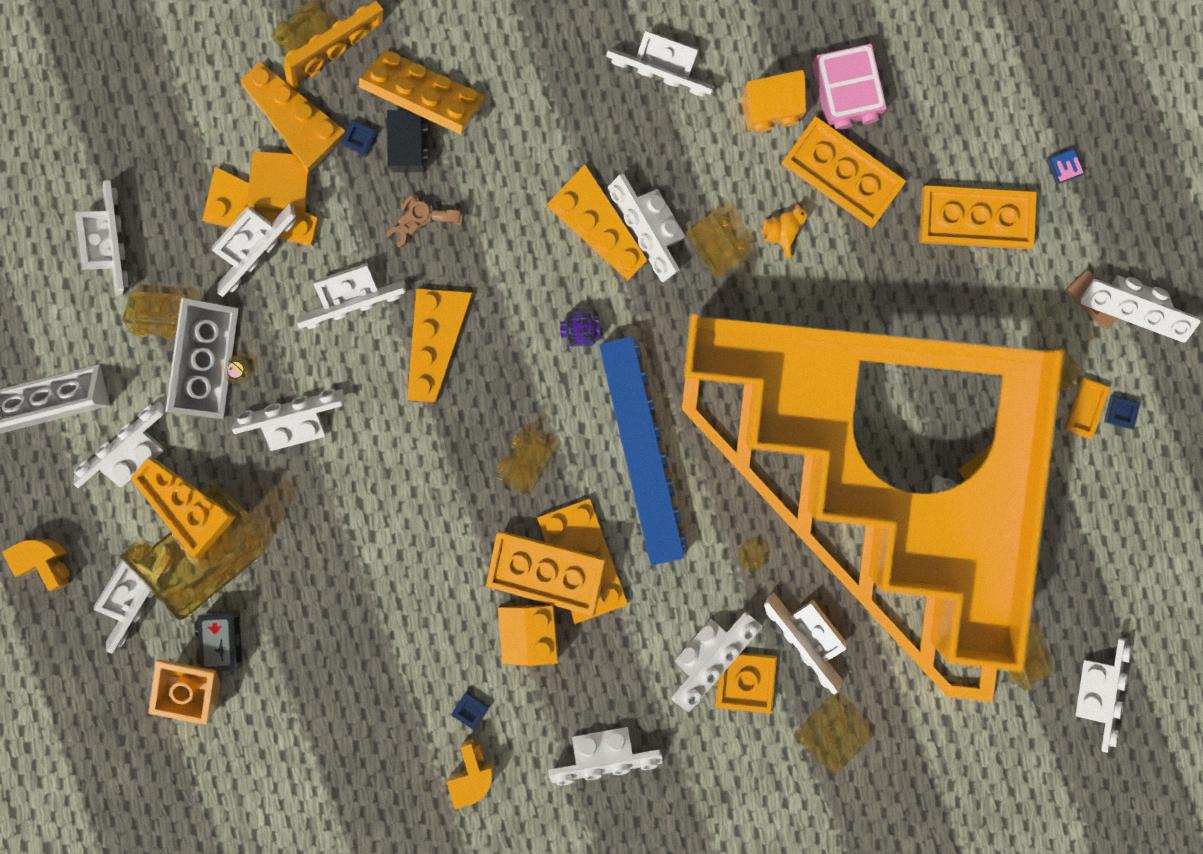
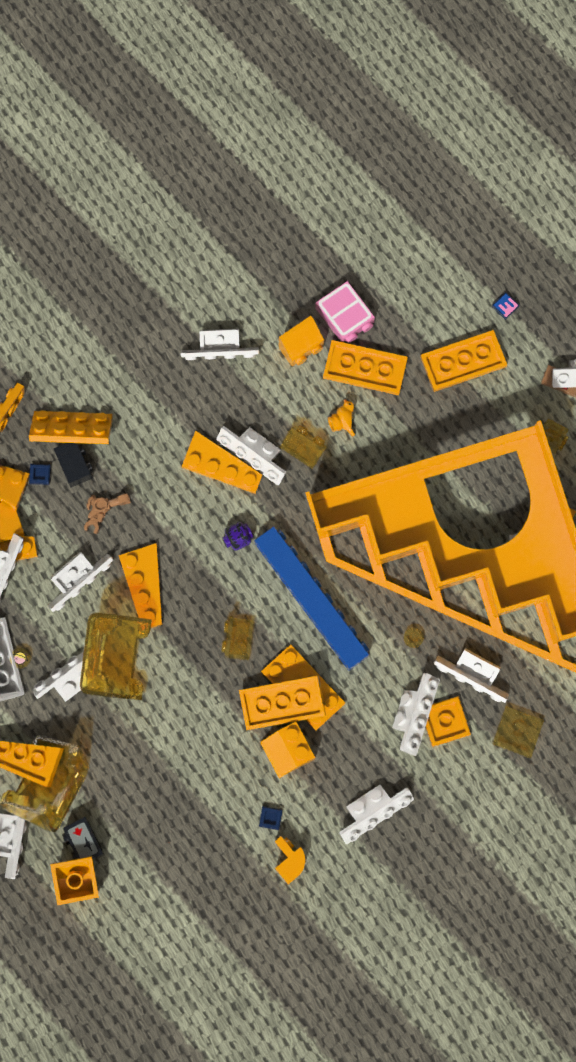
camera: 20 degrees left, 10 degrees down
(349, 421) = (111, 655): none -> clear yellow windscreen

